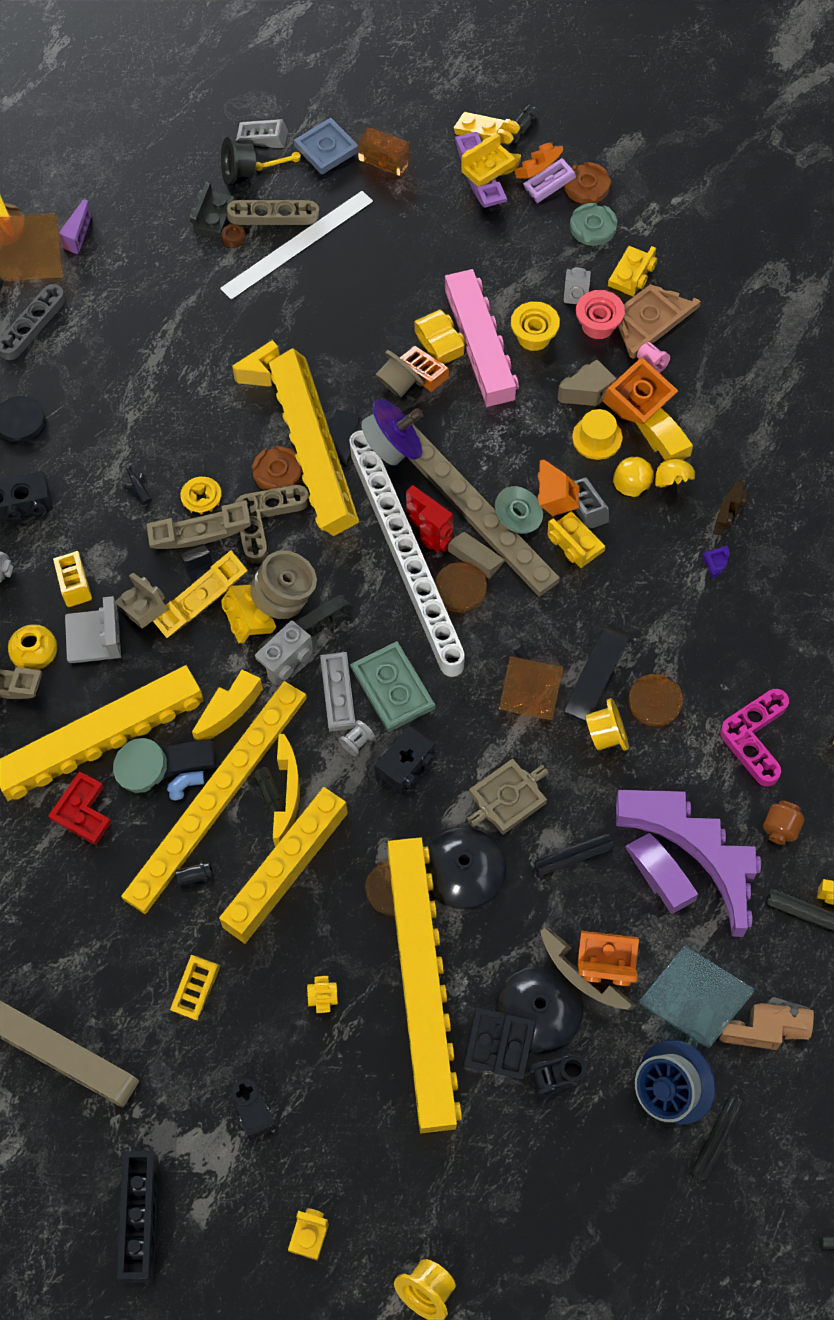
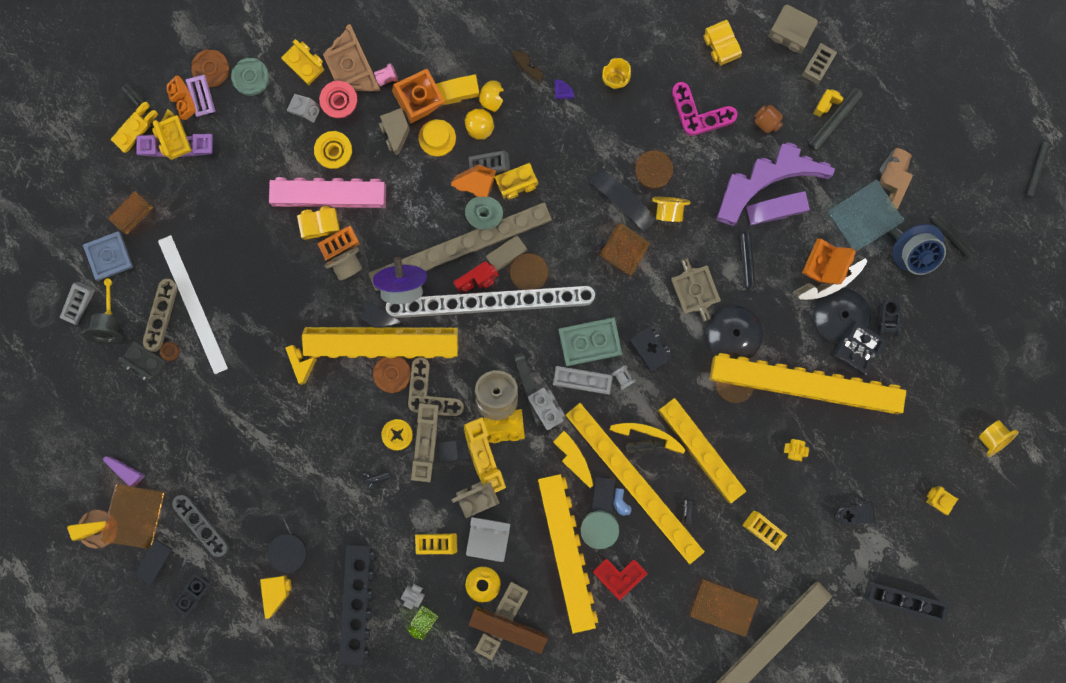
camera: 70 degrees left, 20 degrees up
(70, 962) = (724, 608): none -> clear orange tile
(765, 614) = (617, 73): none -> yellow hair

